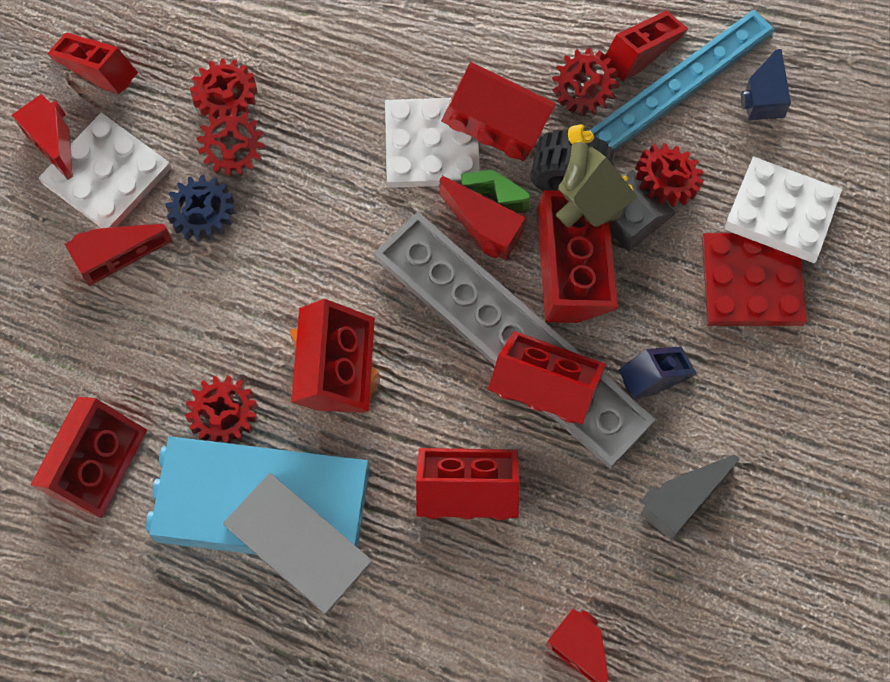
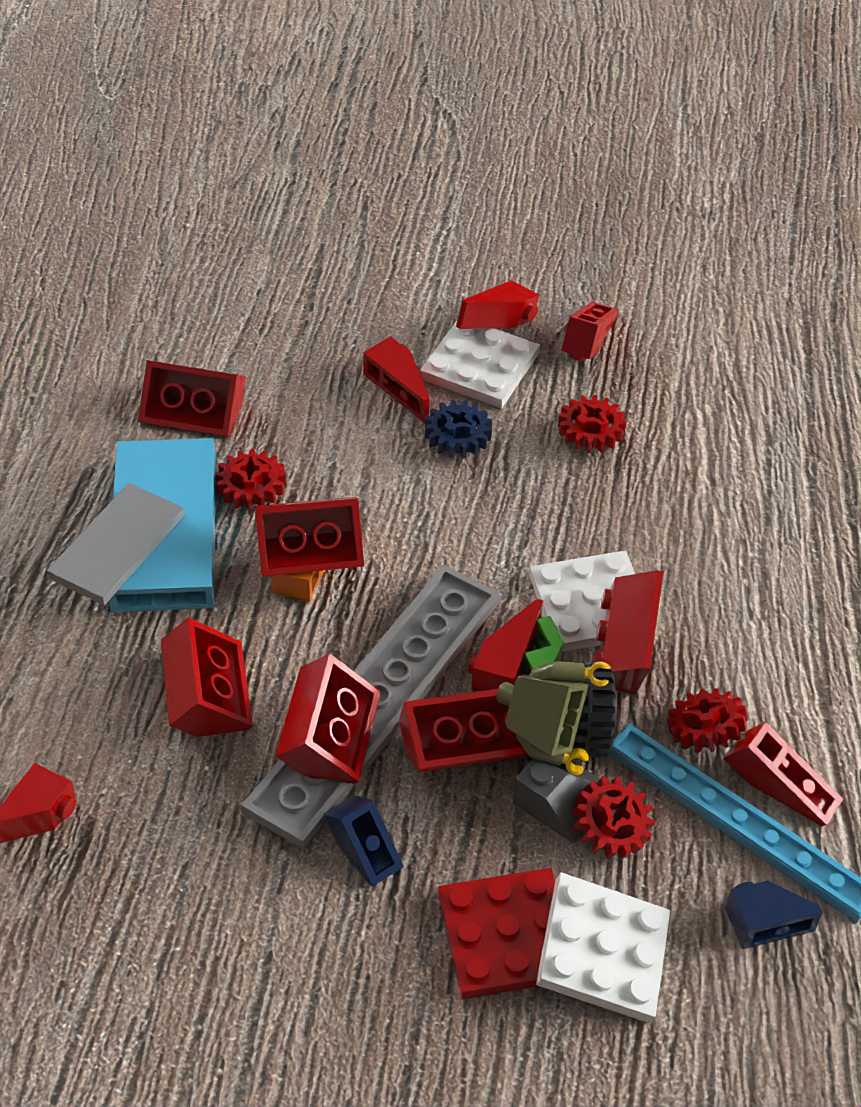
camera: 75 degrees right, 20 degrees down
(216, 141) = (533, 436): red gear -> none
(683, 496) = (210, 879): dark grey slope -> none

